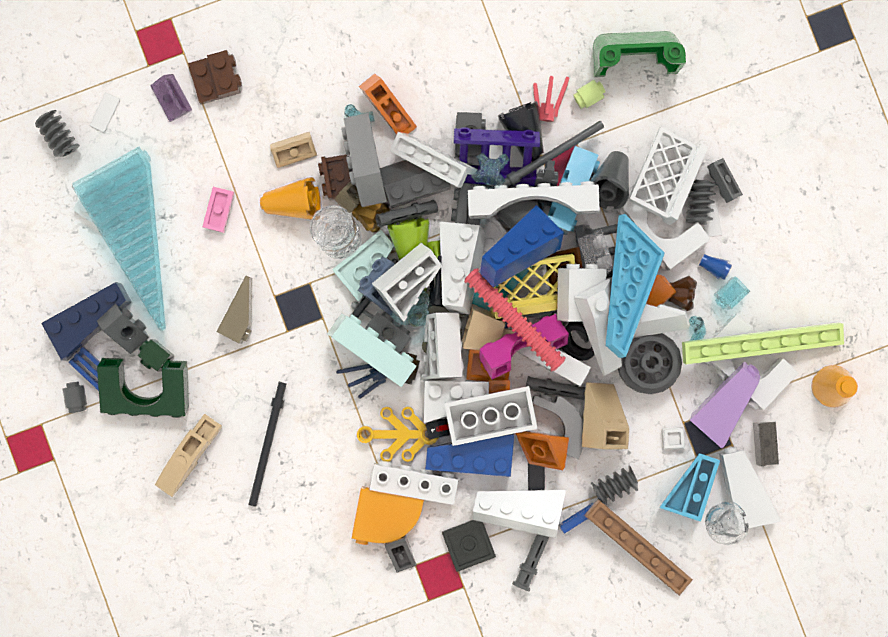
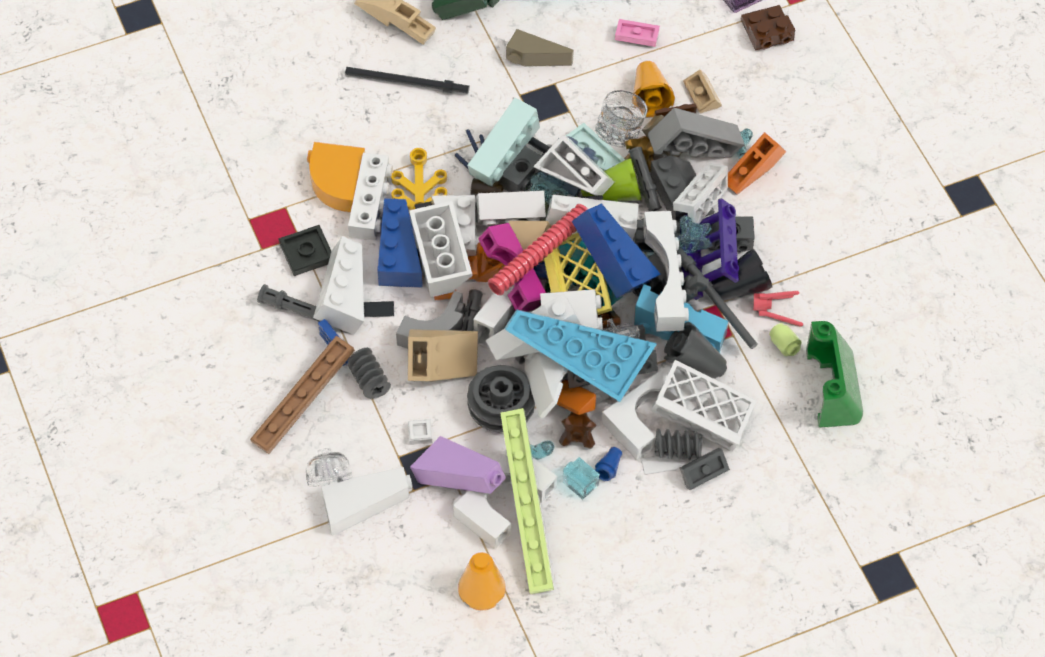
camera: 85 degrees right, 30 degrees down
(400, 554) = (299, 188): dark grey slope -> none
(544, 449) = (410, 302): orange slope -> none
(693, 488) = (367, 443): medium azure wedge -> none
(765, 443) = (415, 516): clear smoke panel -> none

